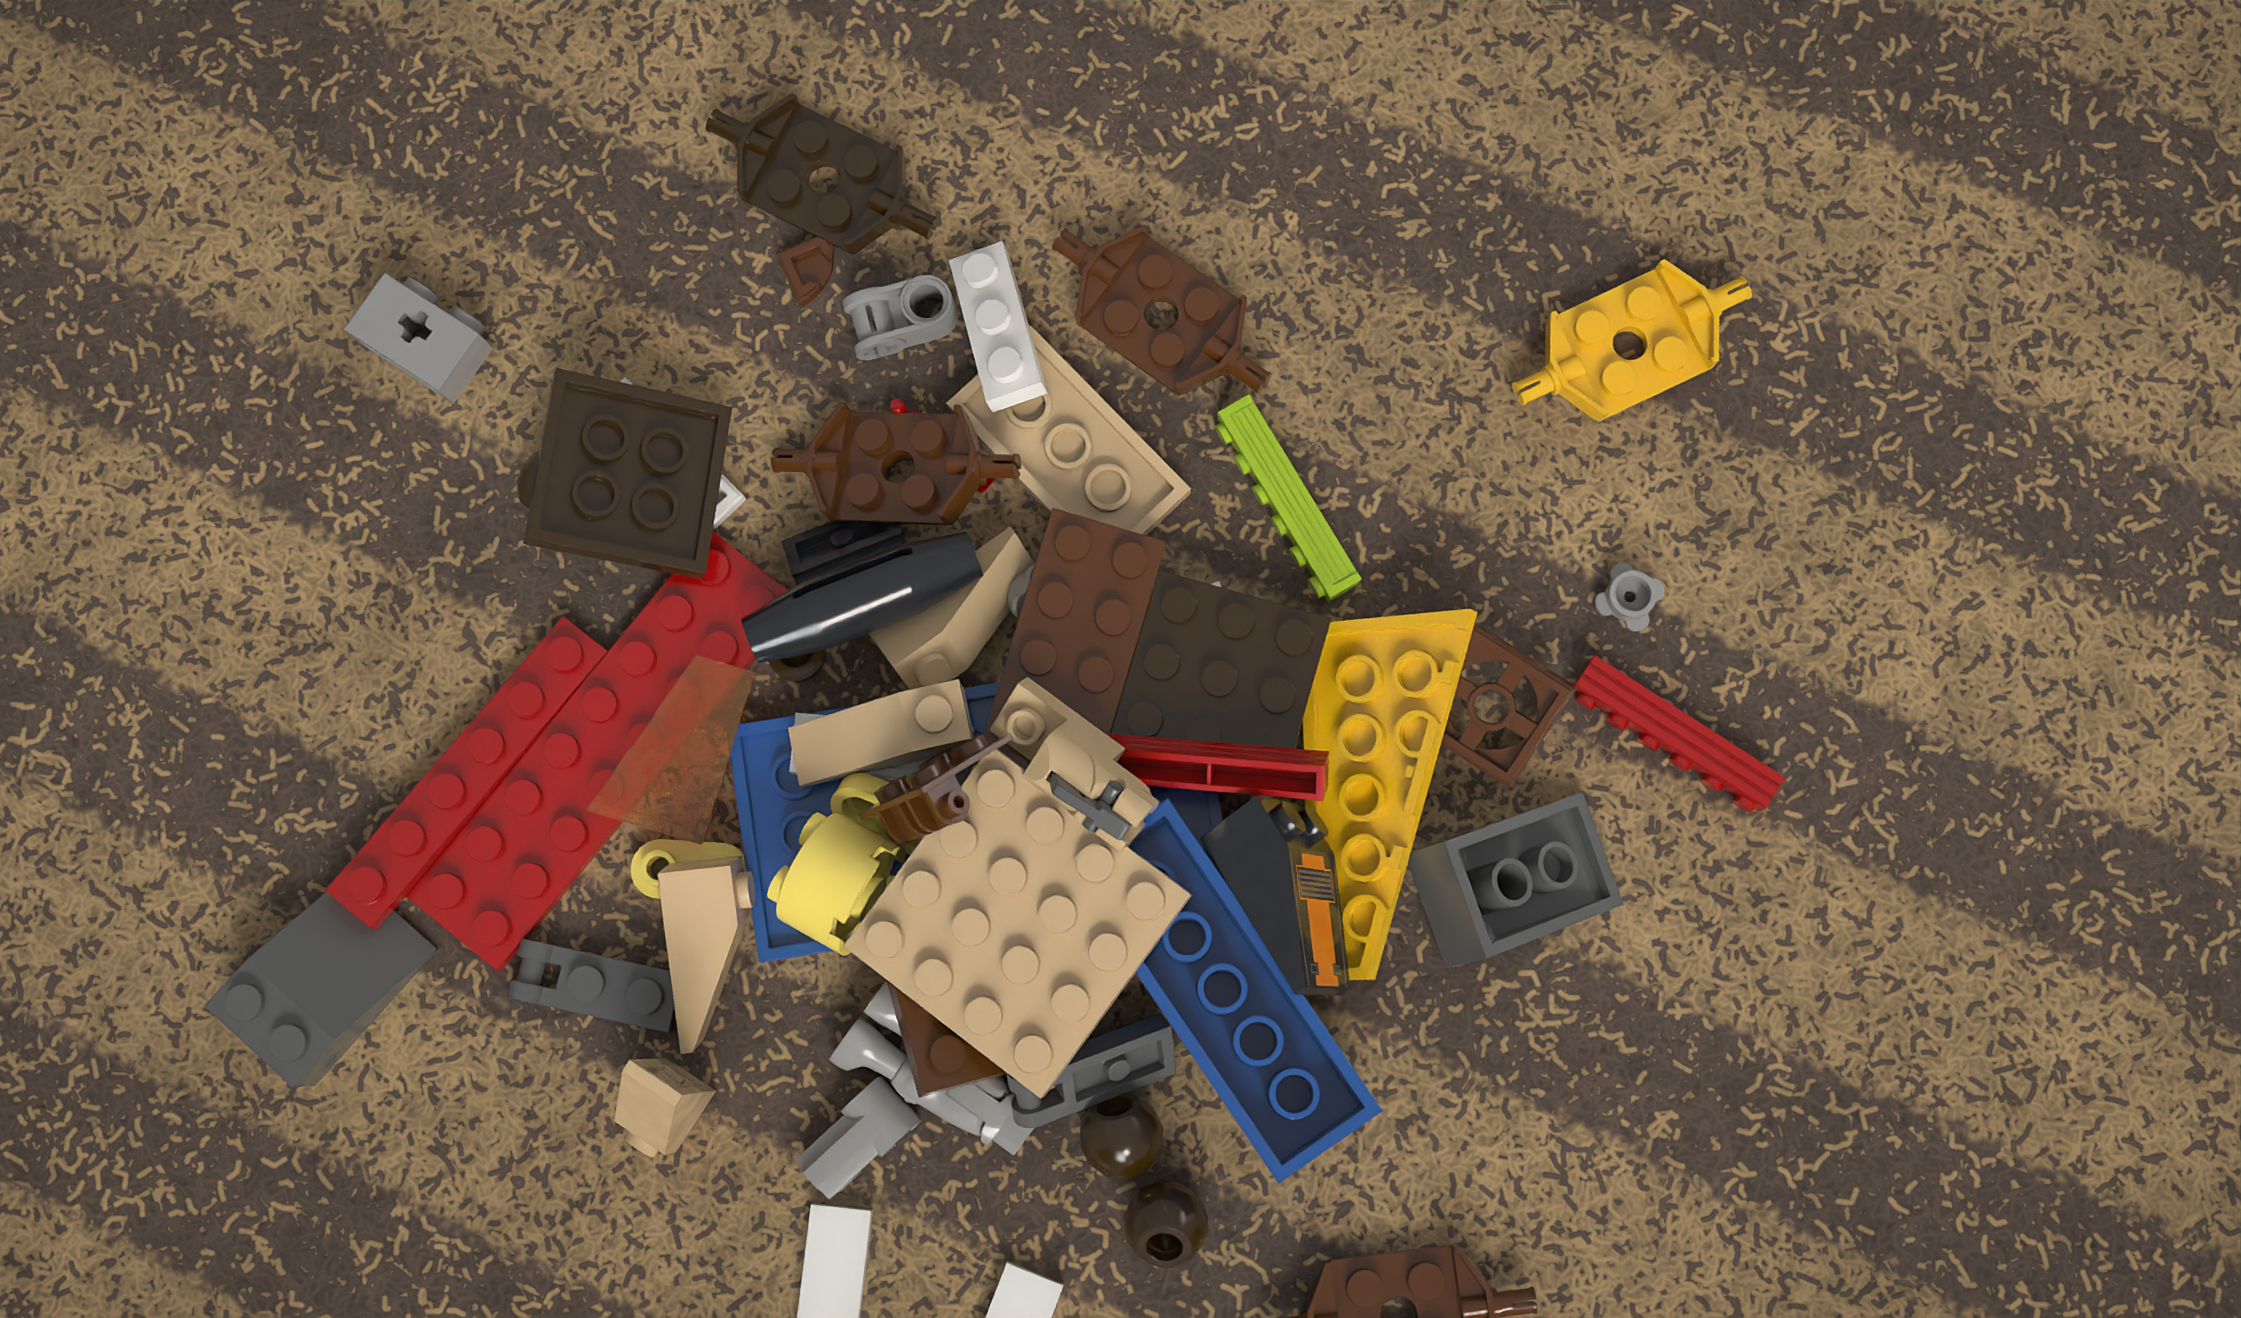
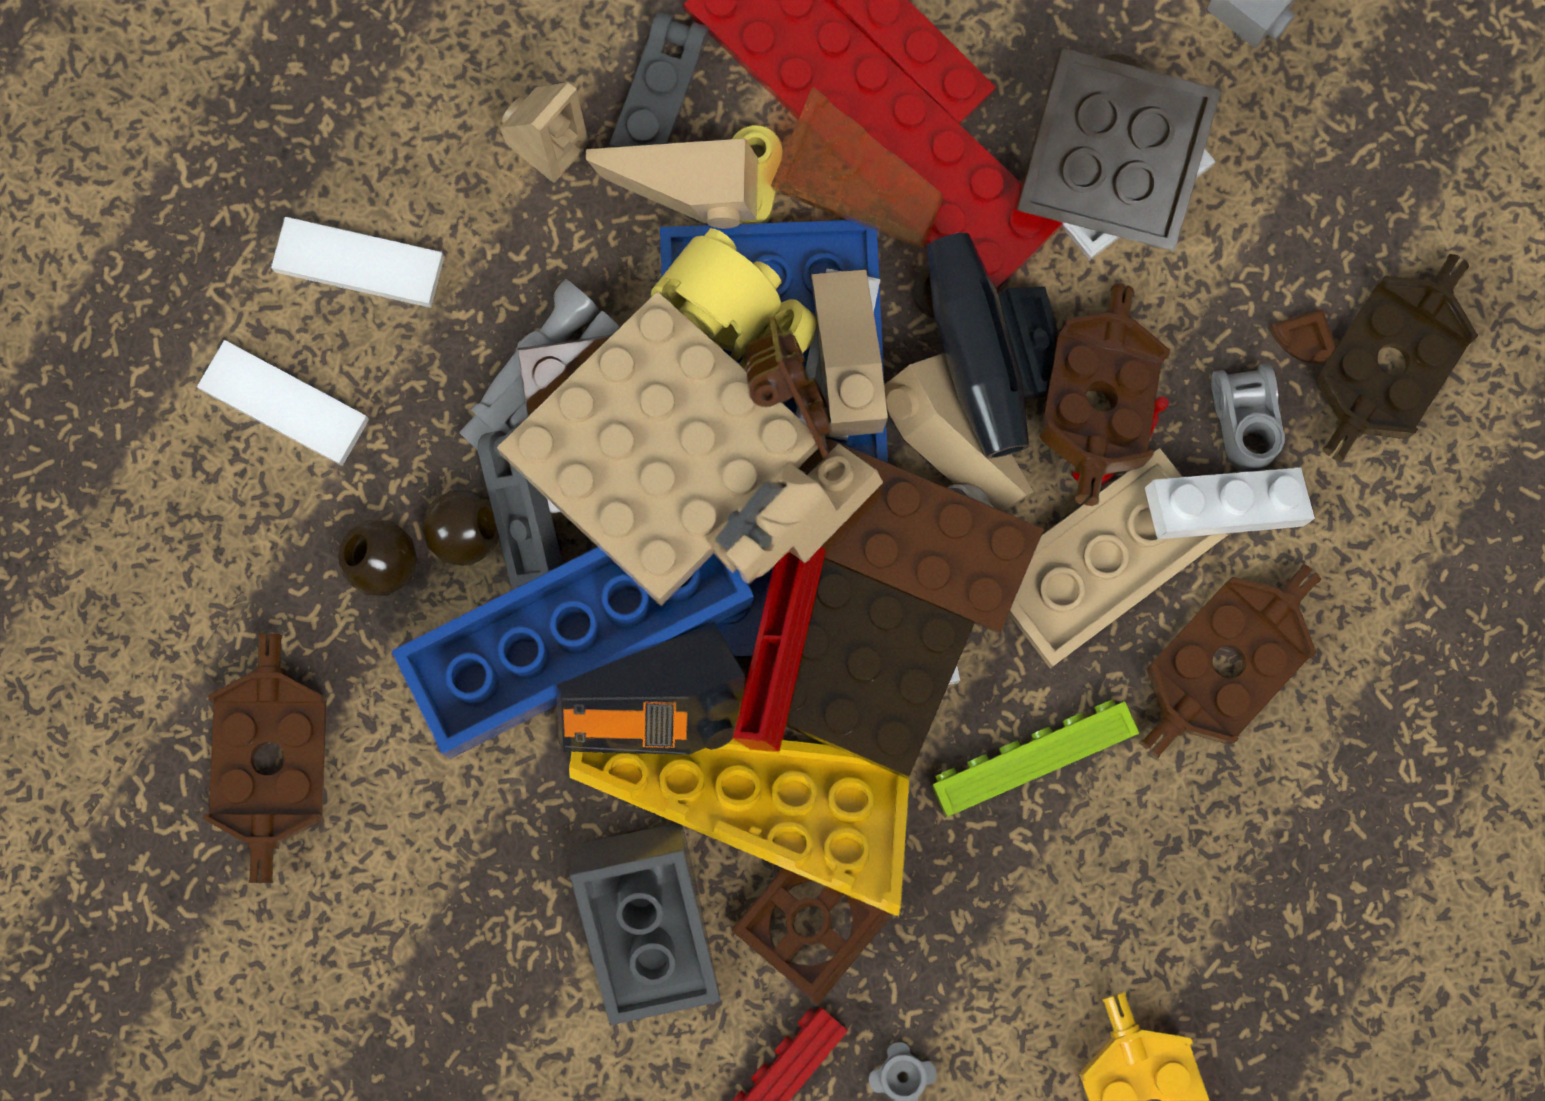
camera: 90 degrees right, 0 degrees up
(867, 1129) = (499, 306): light grey piece -> none

